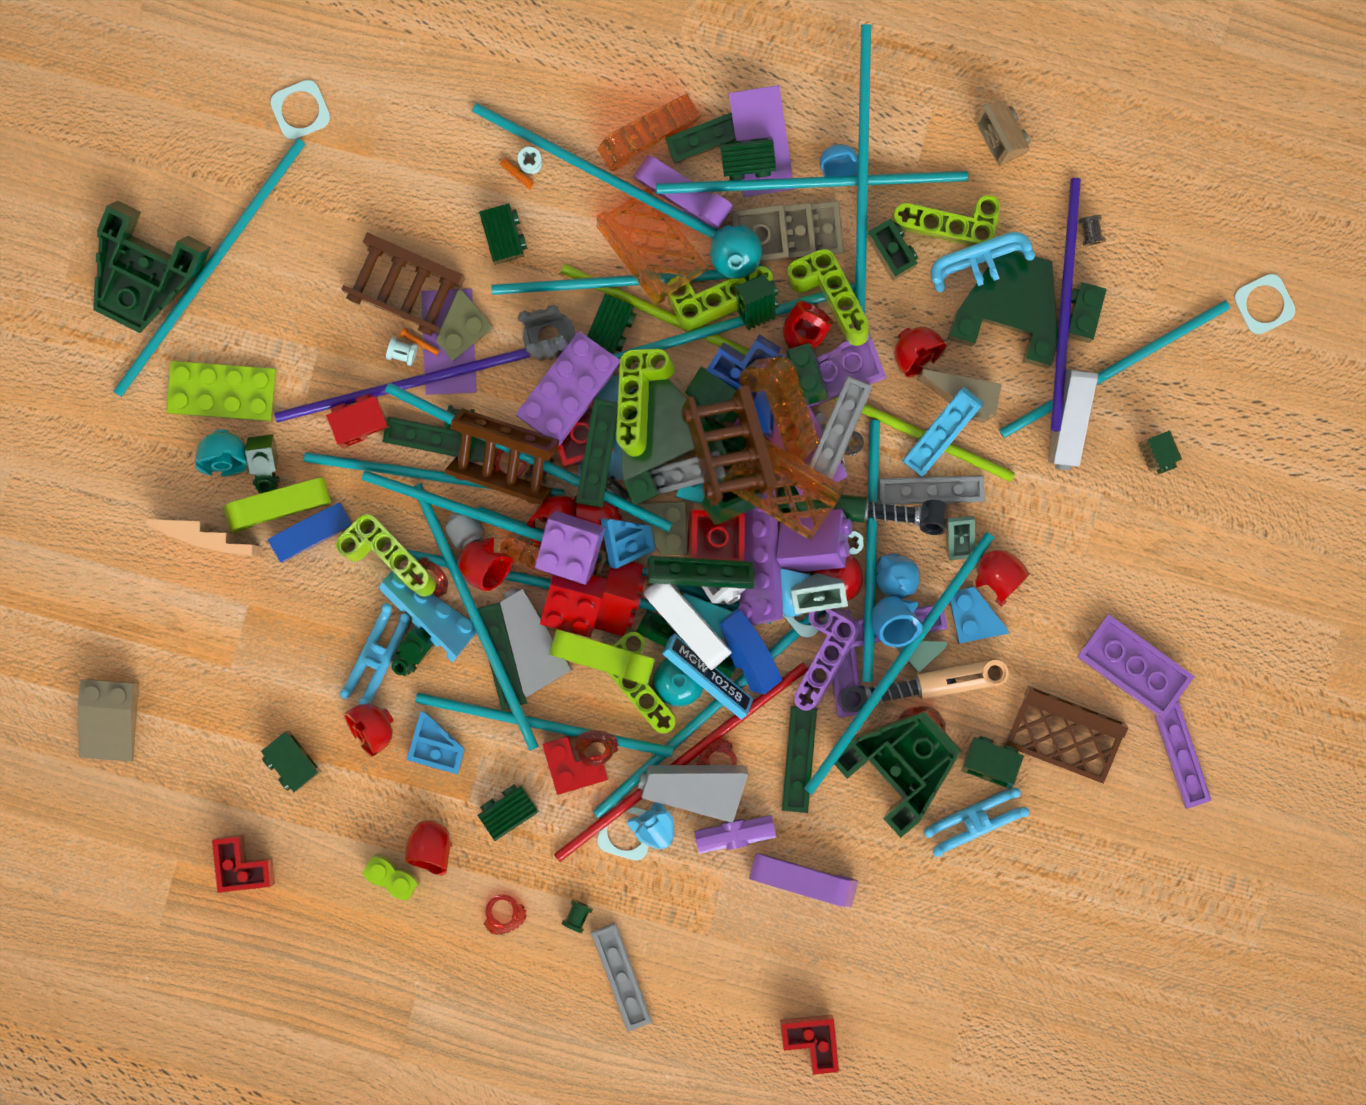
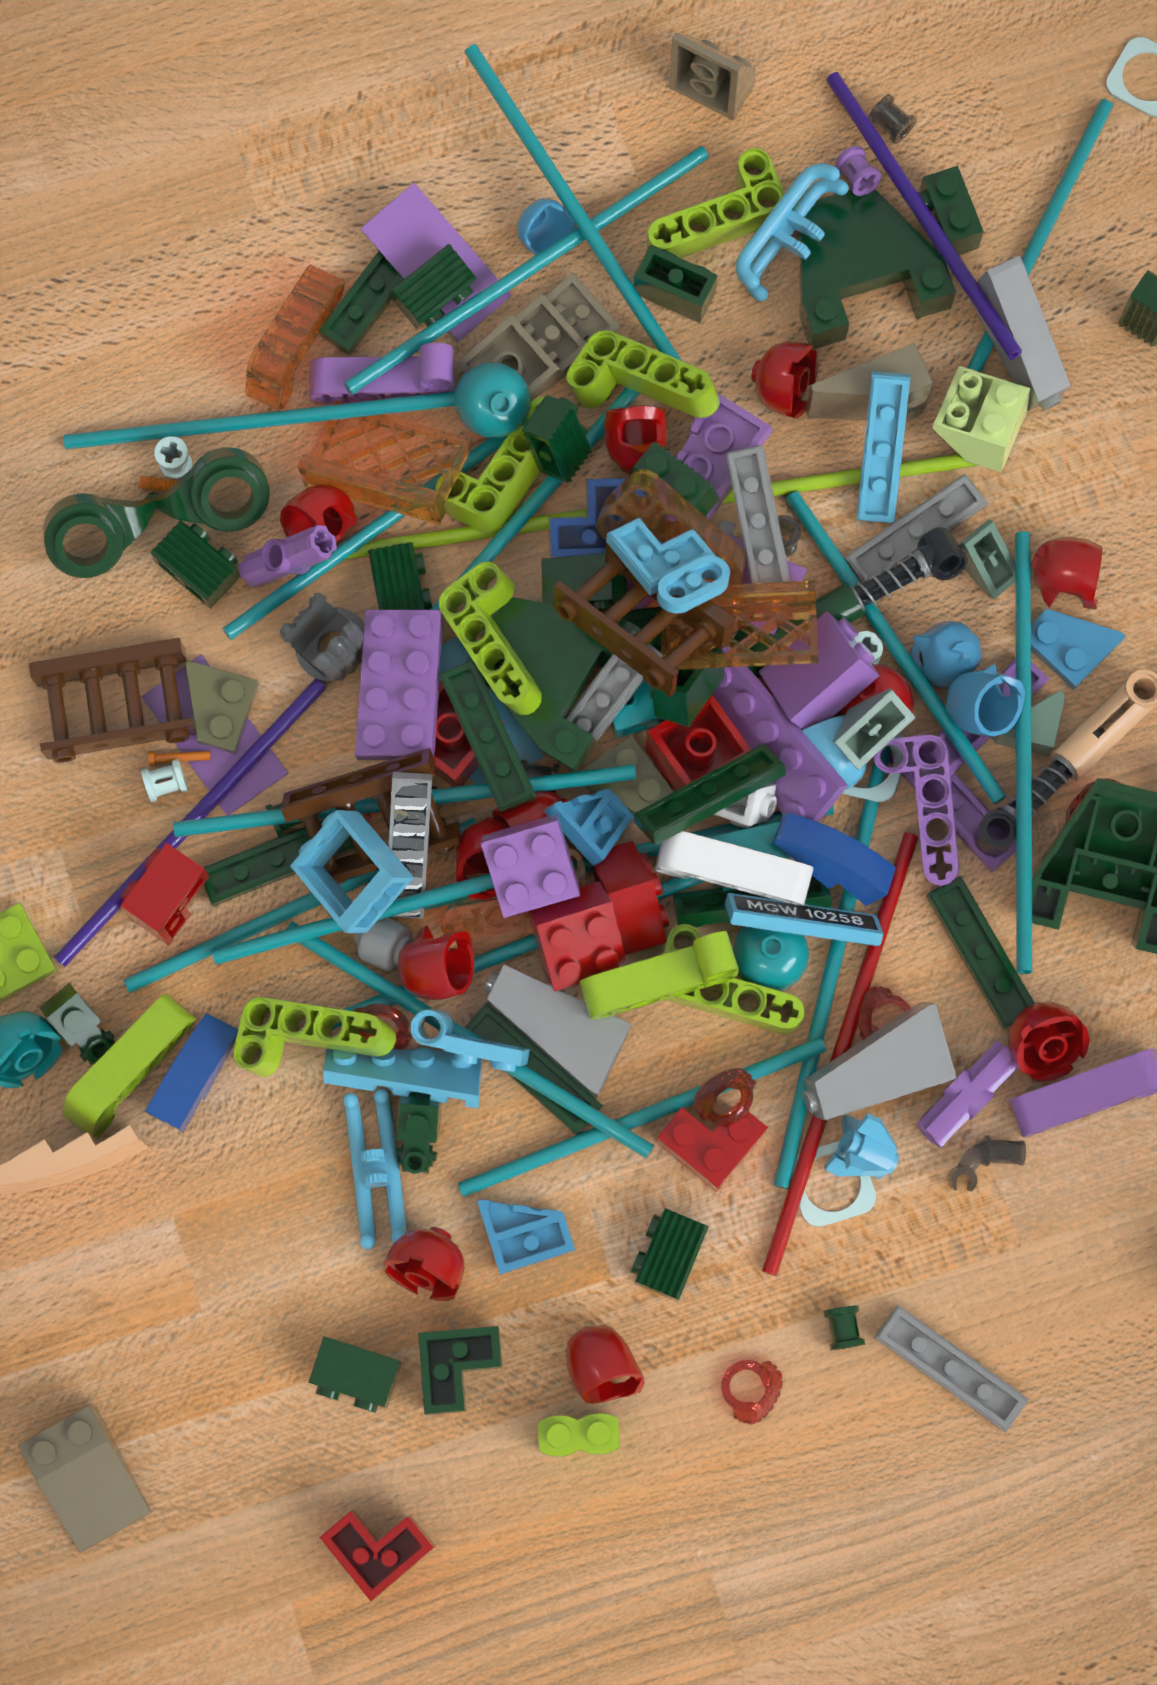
camera: 30 degrees left, 10 degrees down
(346, 787) = (446, 1357): none -> dark green brick
(449, 482) = (380, 891): none -> medium azure window
(469, 623) = (467, 1048): none -> medium azure plate
(475, 182) = (126, 520): none -> dark green piece
(514, 483) = (411, 829): none -> tile
(554, 268) = (287, 556): none -> medium lavender piece
(589, 254) = (319, 506): none -> red piece
(720, 872) = (983, 1153): none -> clear smoke piece
(756, 423) = (648, 557): none -> medium azure tile
(765, 448) = (690, 584): none -> medium azure plate
(798, 835) = (1047, 1040): none -> red cylinder
(1014, 450) = (982, 417): none -> yellowish green slope
(1048, 249) = (858, 170): none -> medium lavender bush

